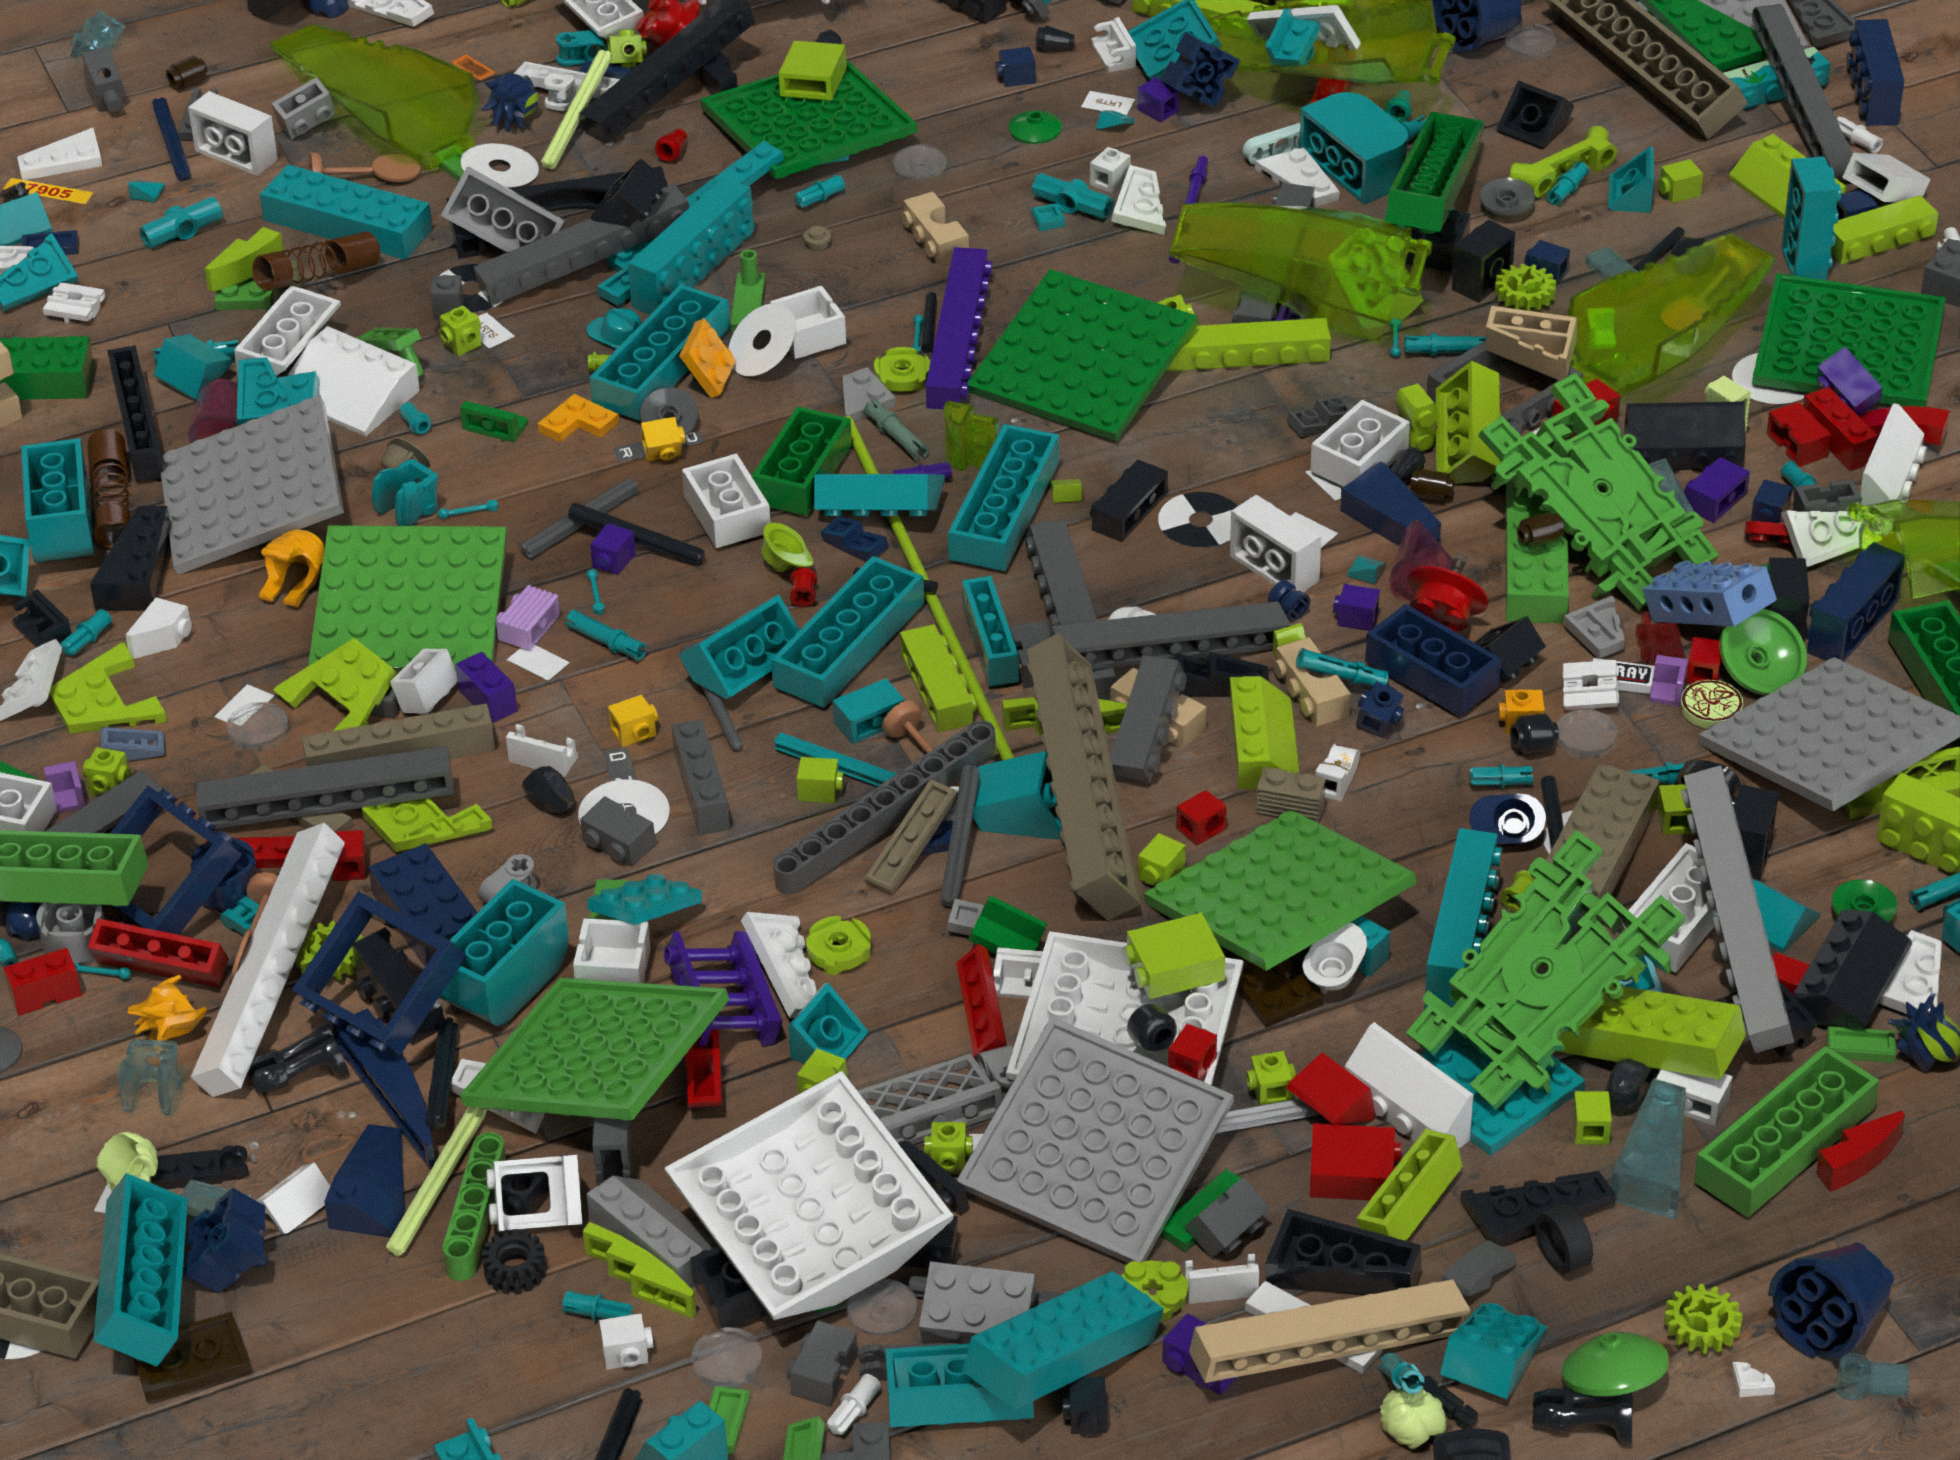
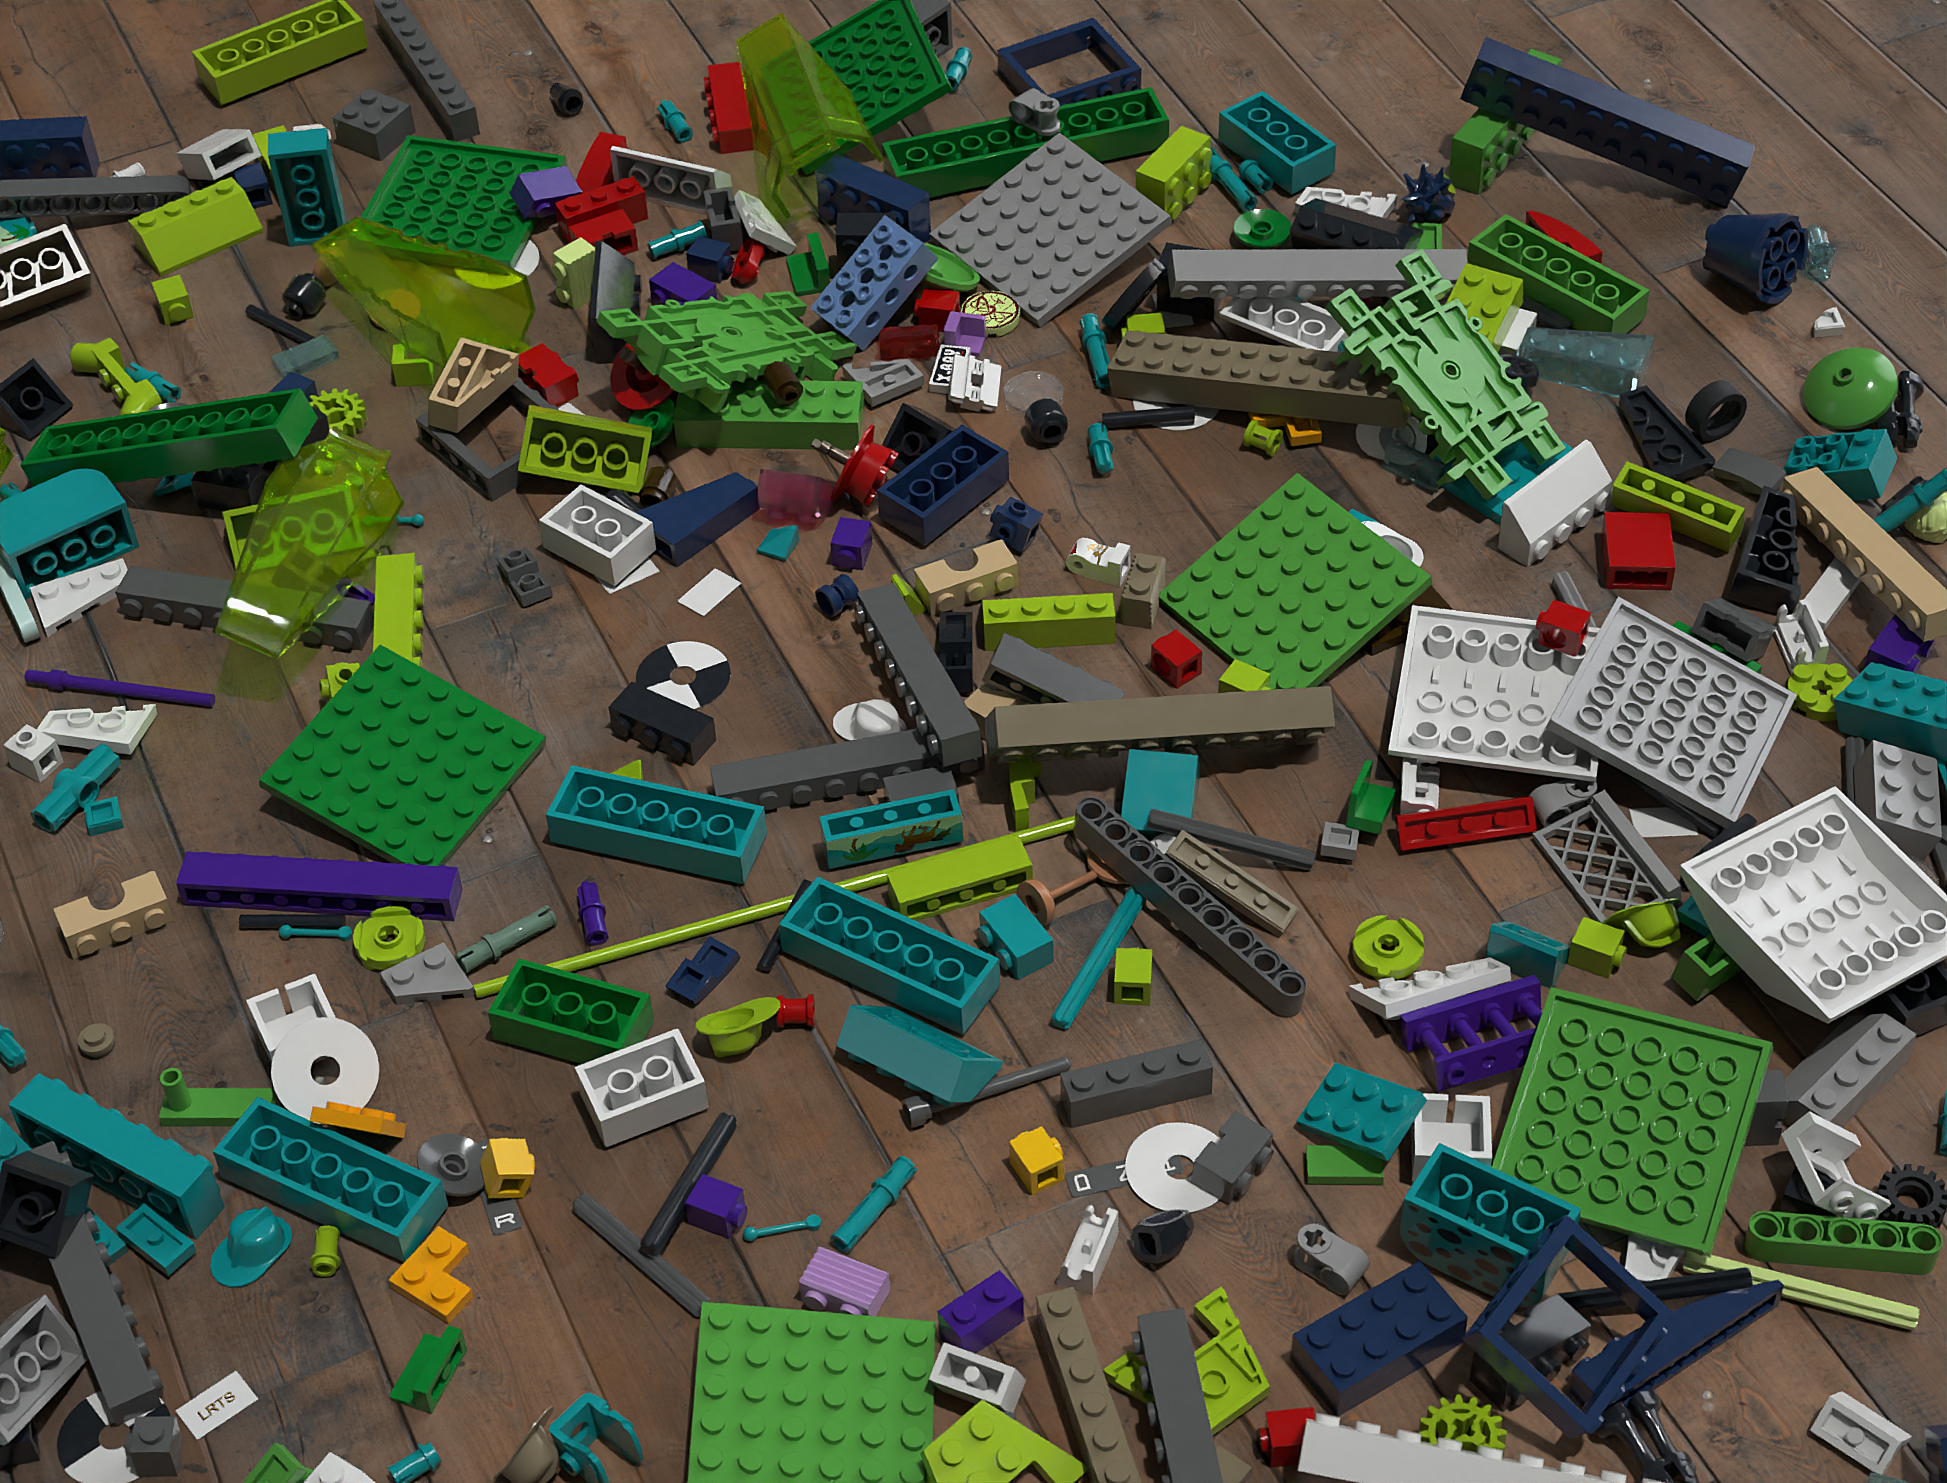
camera: 90 degrees left, 5 degrees up
(369, 1185) = (1824, 1356): dark blue wedge -> none
(460, 330) = (235, 1422): lime brick -> none
(492, 505) = (601, 1360): teal hinge -> none
(538, 662) = (911, 1279): white sticker -> none
(648, 1276) = (1904, 1079): lime slope -> none
(877, 492) = (642, 929): teal slope -> none
(949, 1145) = (1679, 836): lime brick -> none
(967, 435) = (551, 858): clear neon green brick -> none
(1152, 1028) = (1535, 656): black head -> none
(1174, 956) = (1430, 642): lime brick -> none
(1273, 1072) = (1540, 593): lime brick -> none
(1274, 544) = (766, 594): white brick -> none
(1333, 1092) = (1565, 553): red slope -> none
(1354, 671) = (959, 547): teal pin -> none
(1421, 412) = (560, 478): lime brick -> none
(1440, 344) = (417, 485): teal pin -> none
(1463, 908) = (1341, 464): teal brick -> none
(1511, 816) = (1175, 435): dark blue piece -> none
(1519, 703) = (1011, 428): light orange brick -> none
(1591, 1118) = (1555, 395): lime brick -> none
(1633, 184) = (169, 329): teal slope -> none
(1703, 1318) = (1774, 341): lime gear -> none

